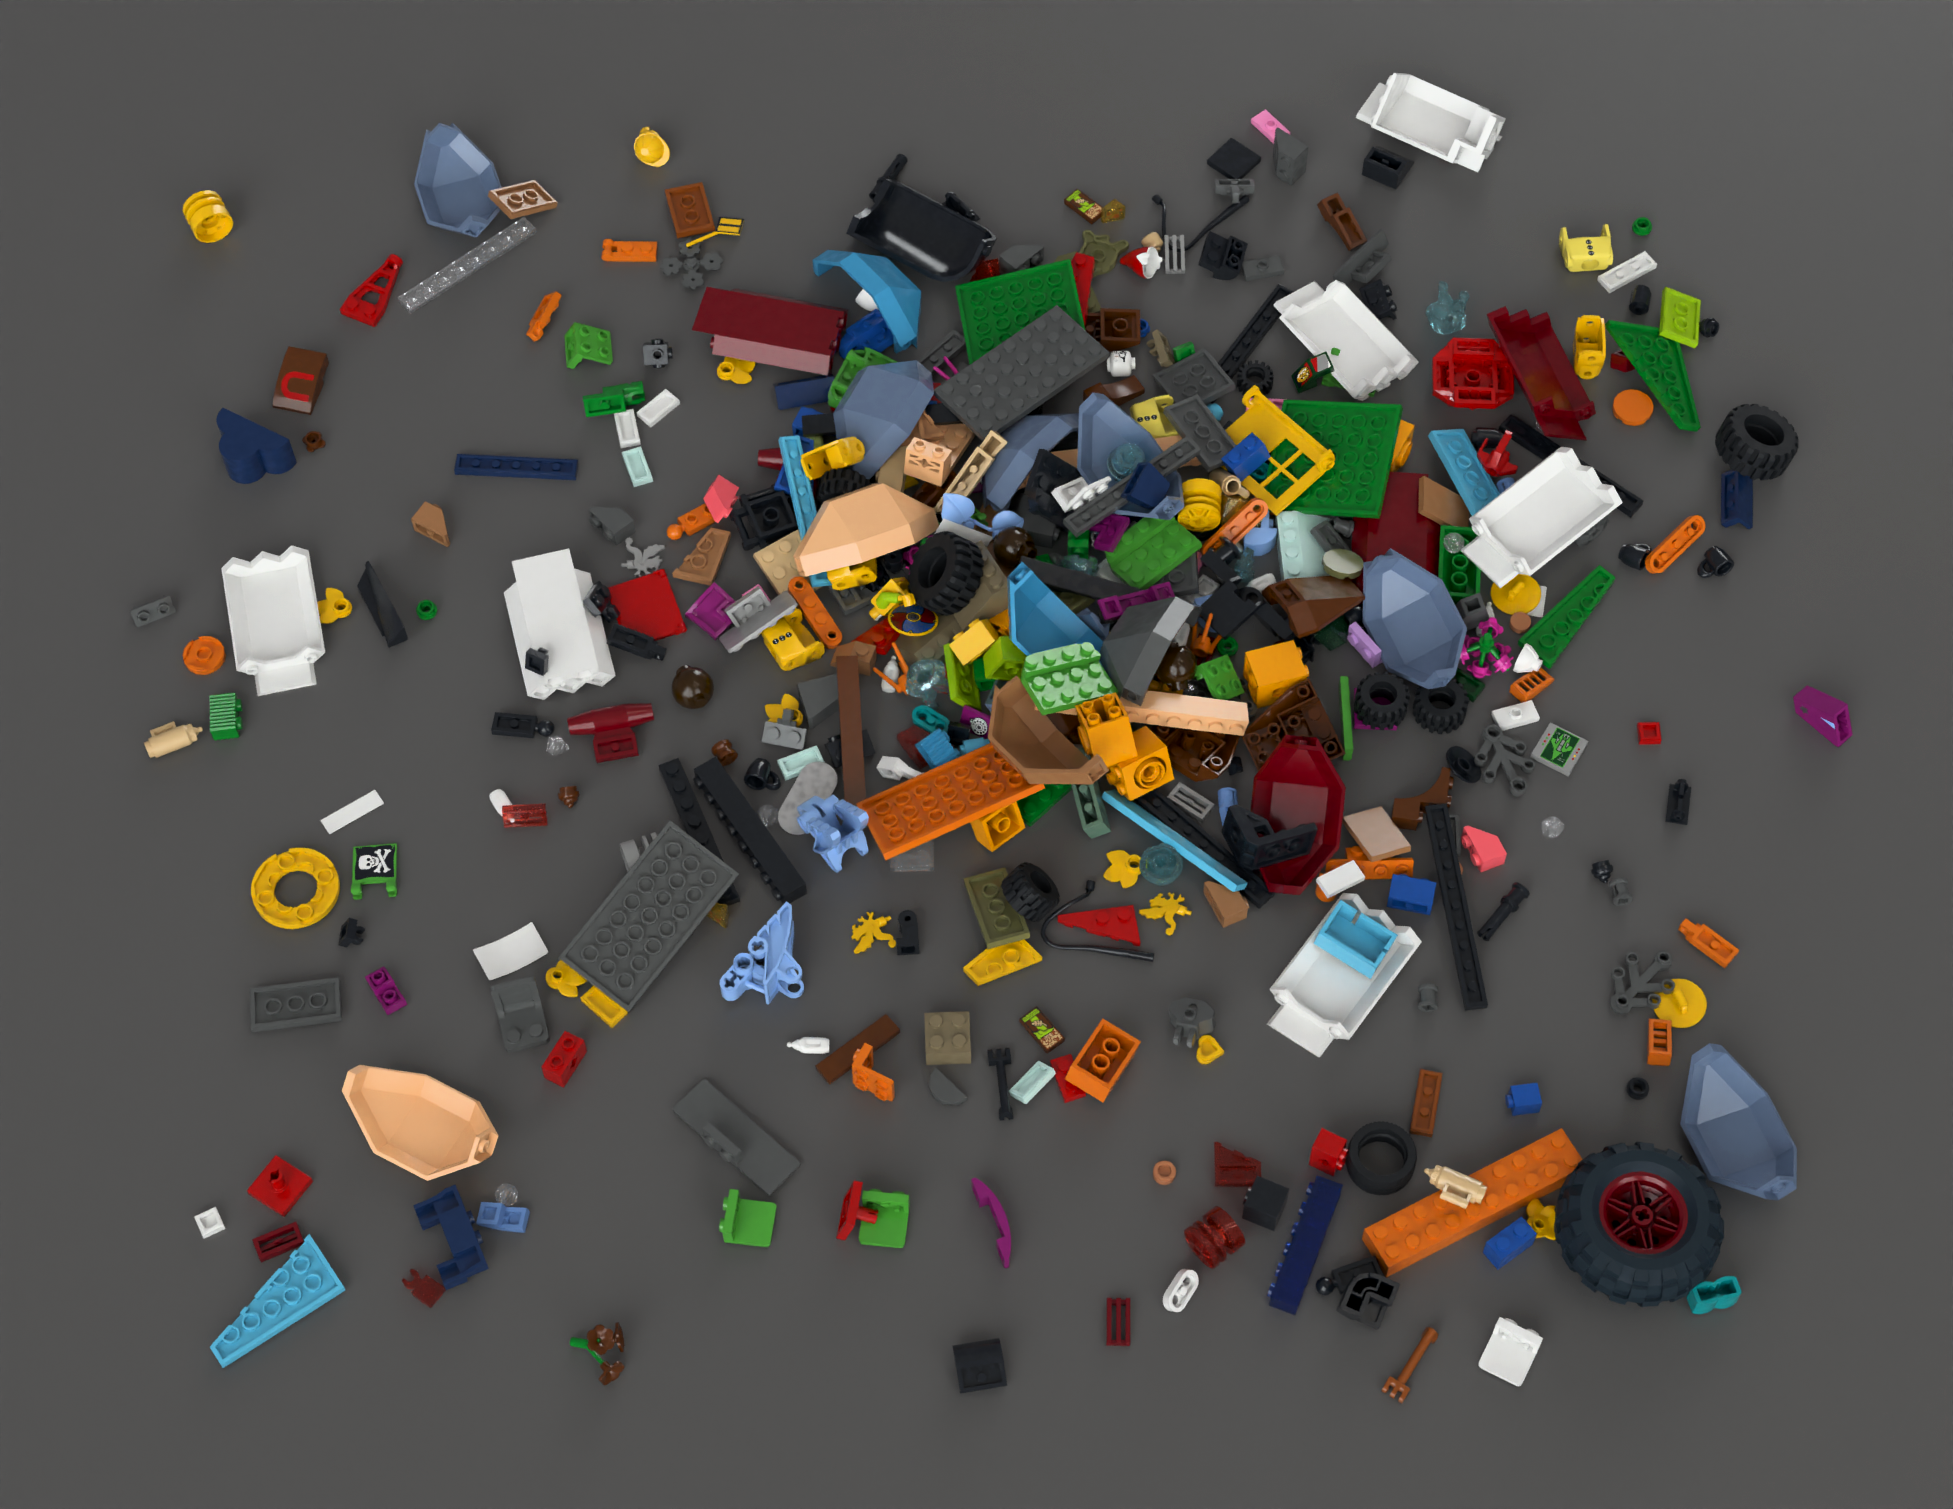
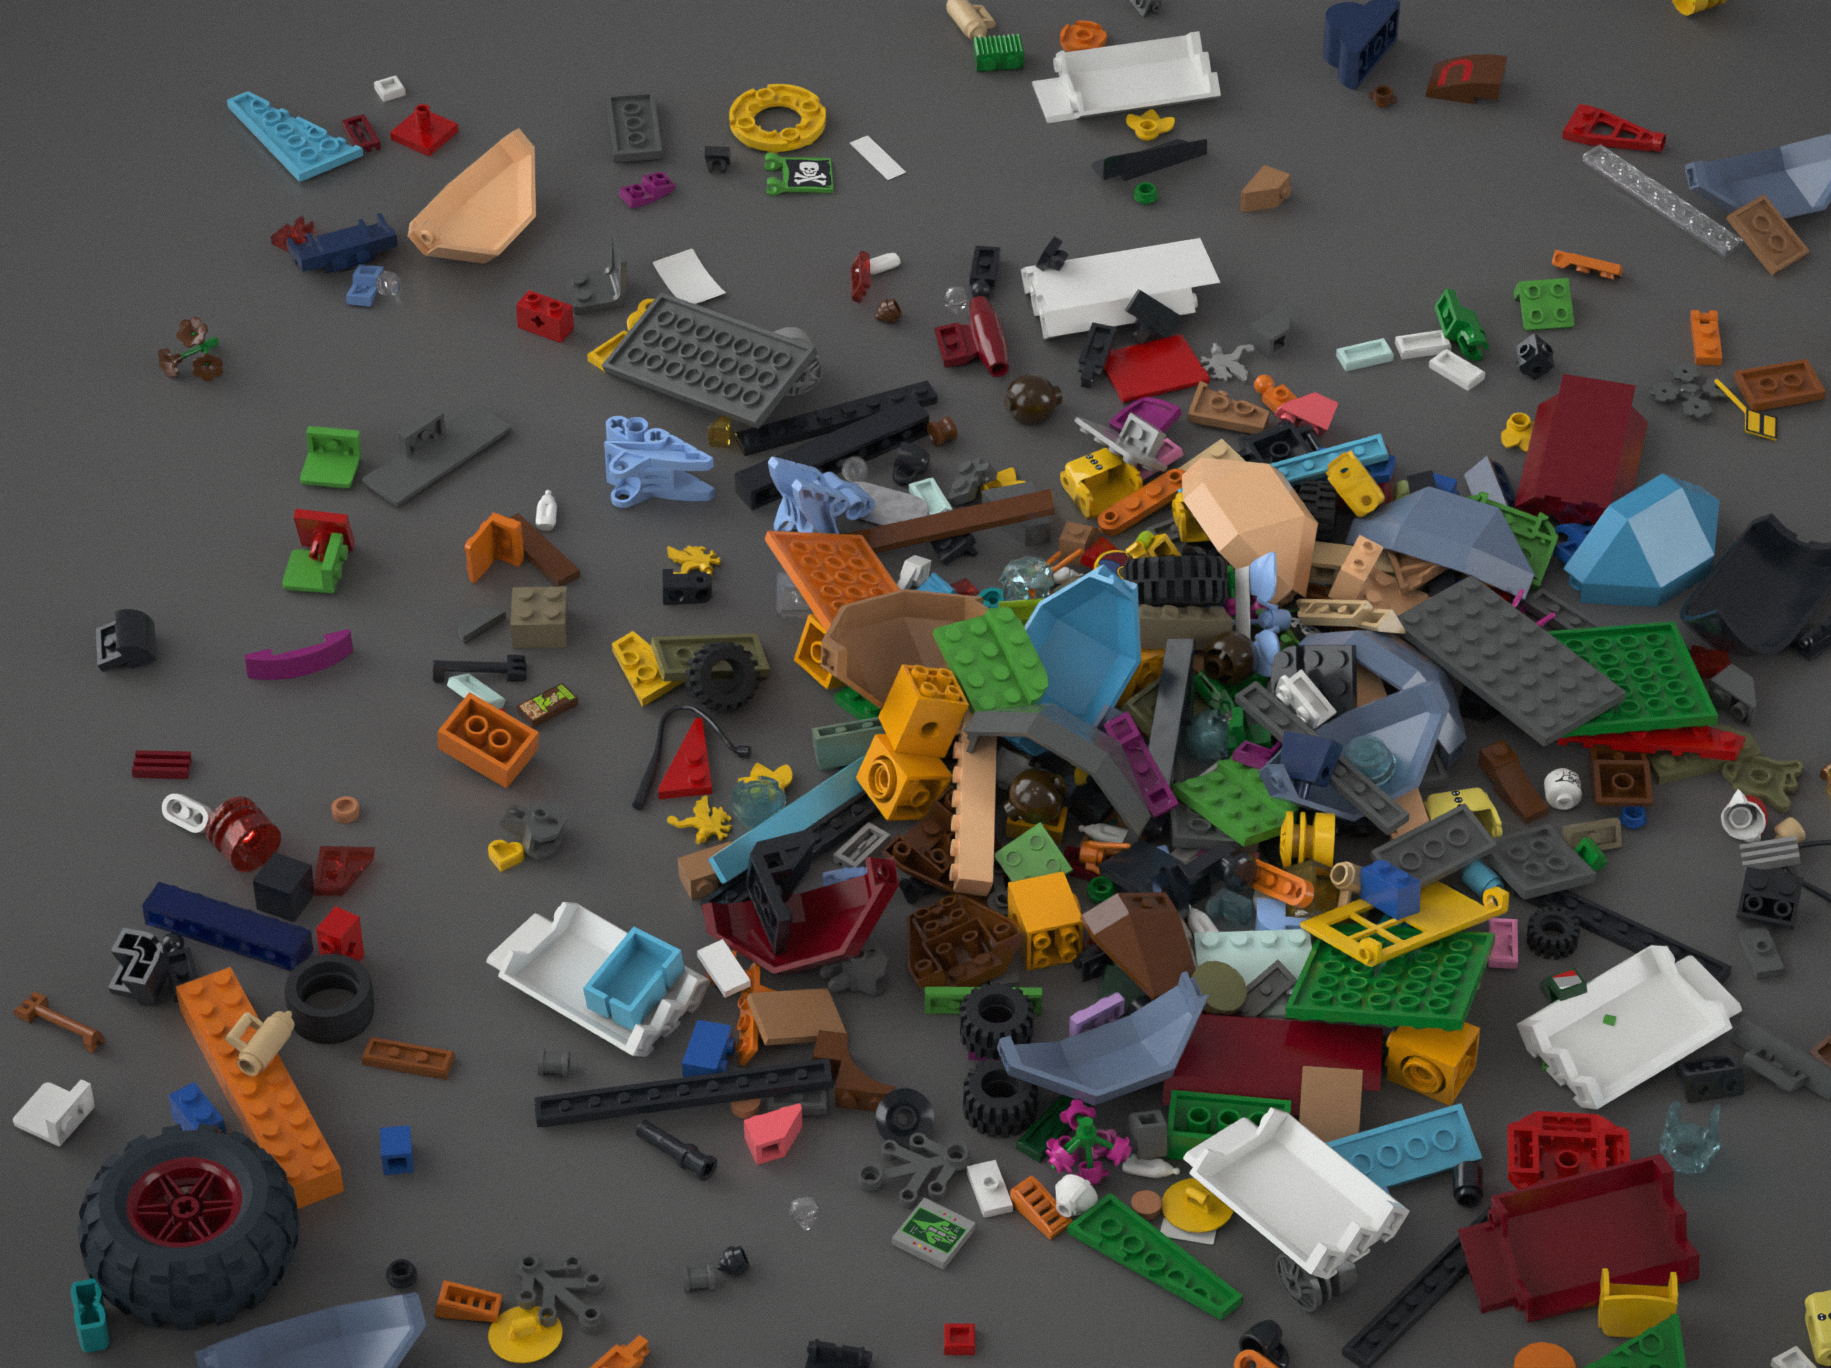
camera: 90 degrees right, 15 degrees down
(516, 467) = (1357, 257): dark blue tile -> none
(1453, 547) = (1255, 1105): clear plate -> none
(1497, 462) = (1413, 1181): red piece -> none

